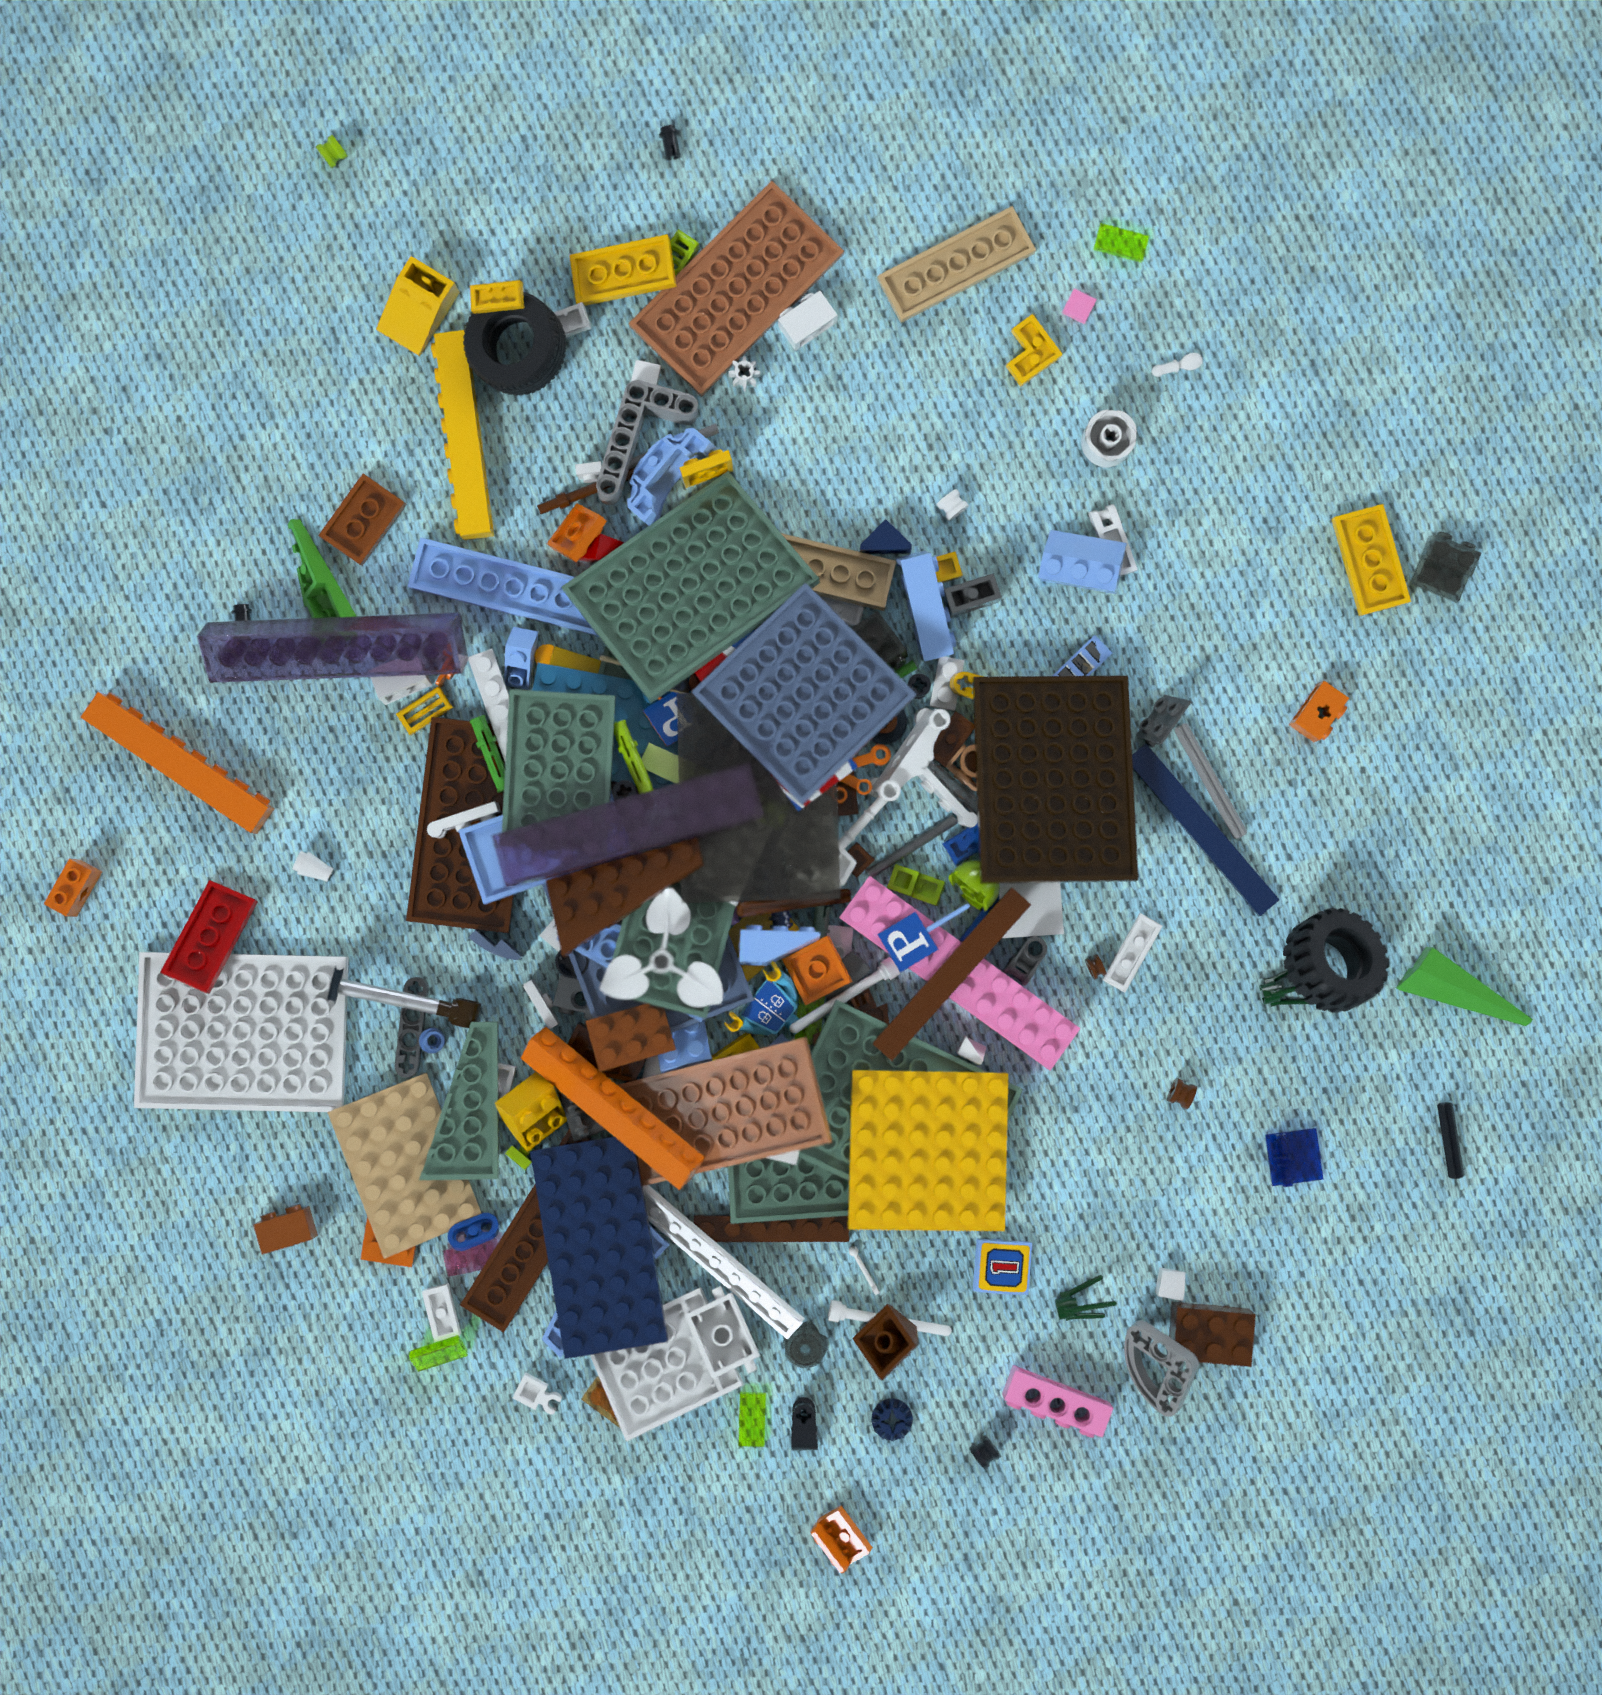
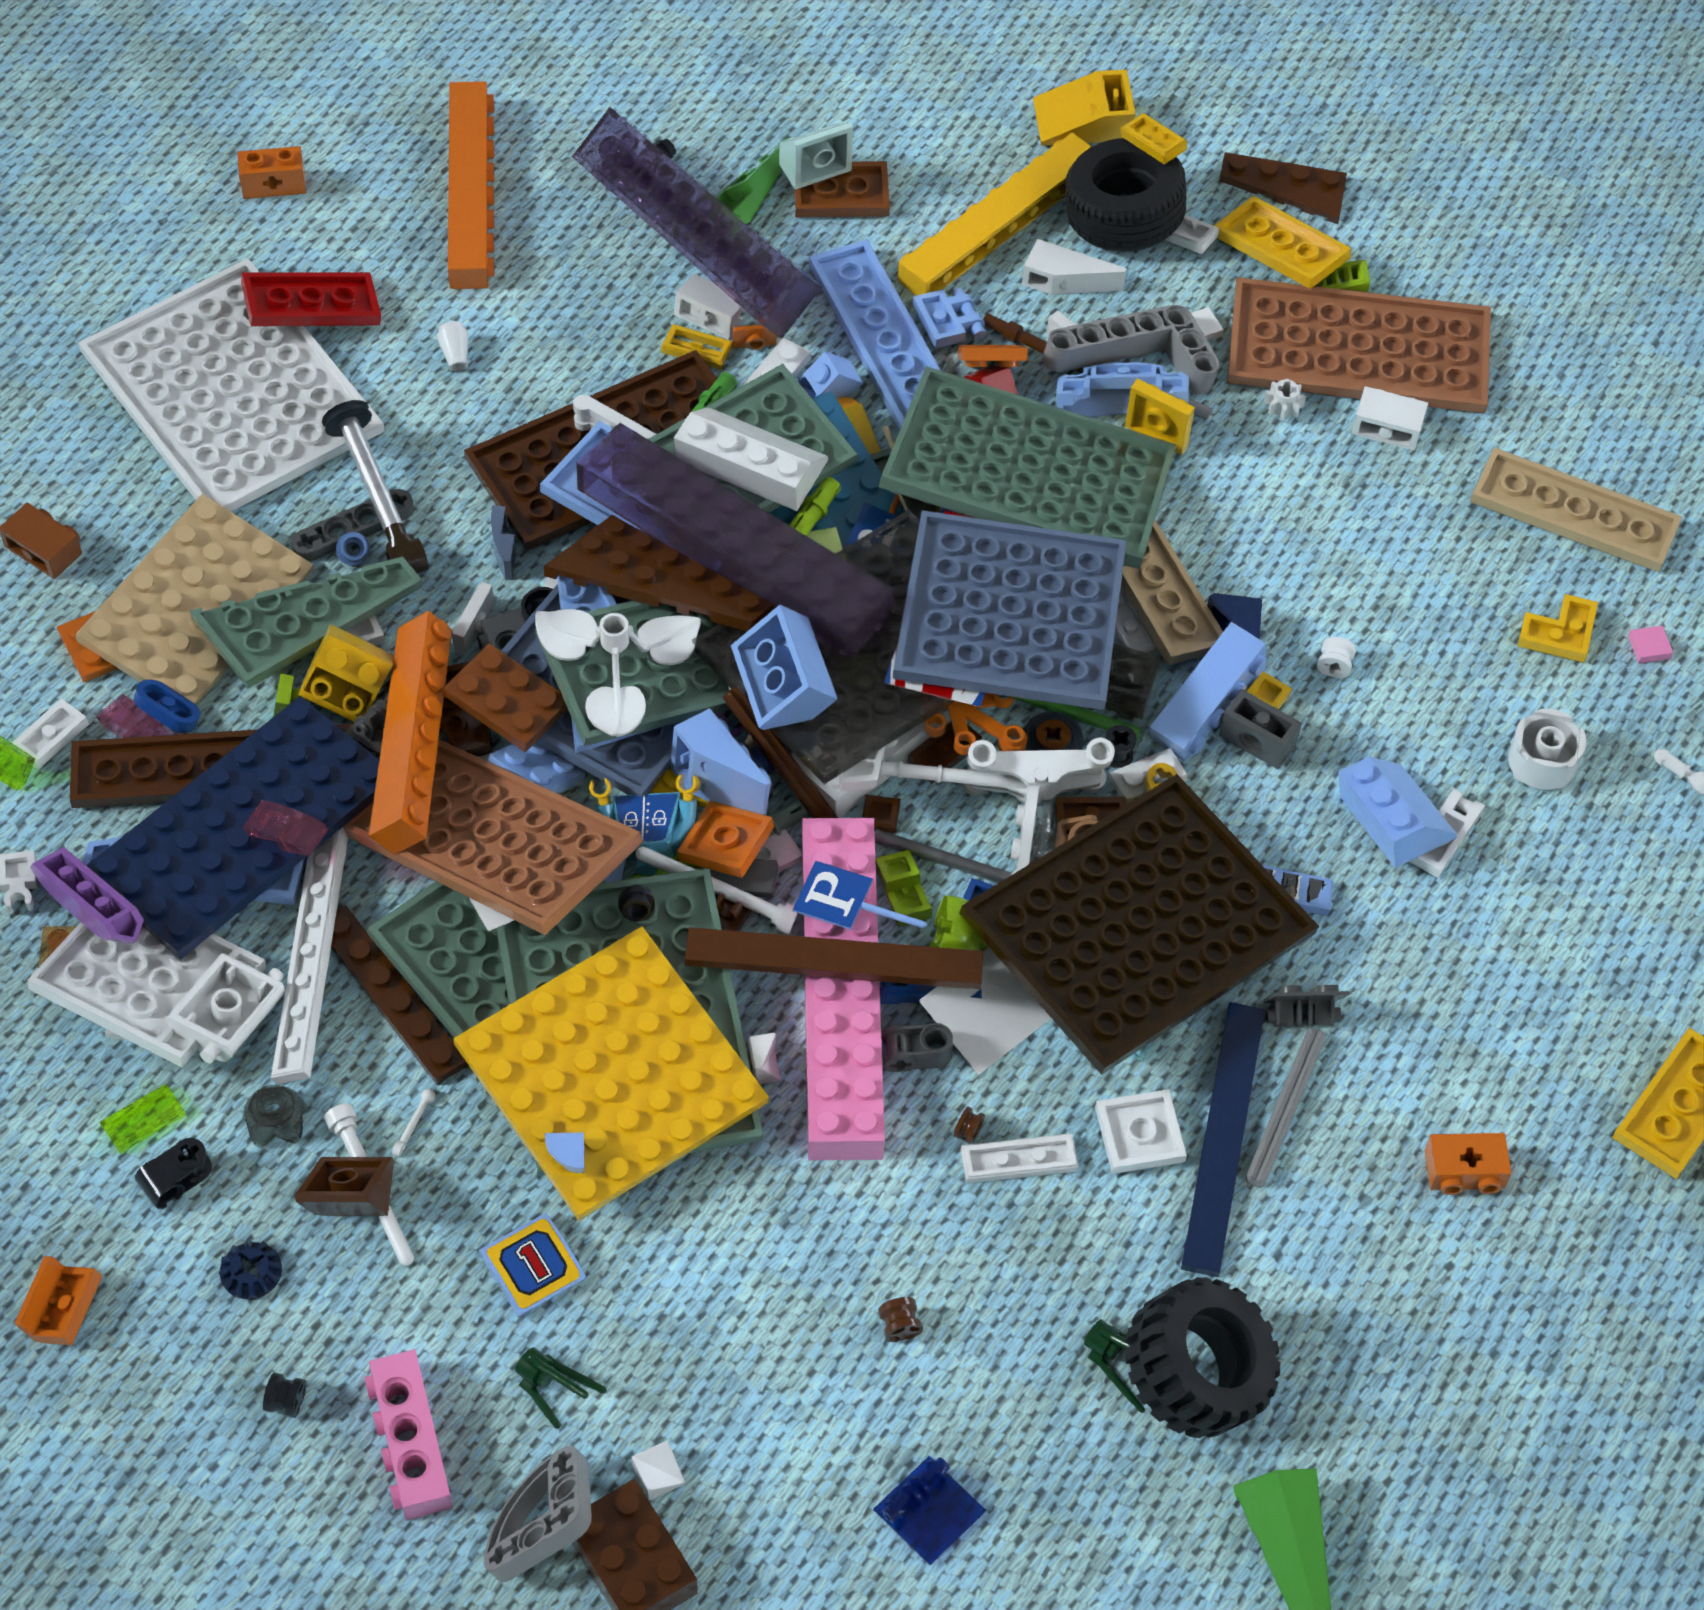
camera: 55 degrees right, 30 degrees down
(329, 520) = (817, 154): none -> light aqua slope
(521, 540) = (942, 322): none -> light blue plate
(539, 431) = (1068, 272): none -> white slope
(568, 764) = (748, 457): none -> white slope
(579, 215) = (1305, 187): none -> reddish brown wing
(592, 1372) = (88, 897): none -> medium lavender brick
(631, 1230) = (288, 827): none -> clear pink slope
(669, 137) = (1445, 205): black pin -> none
(752, 869) = (783, 670): none -> light blue slope
(834, 1062) = (636, 903): none -> black plate
(967, 1215) = (567, 1150): none -> light blue tile
(1168, 874) = (1140, 1131): none -> white plate

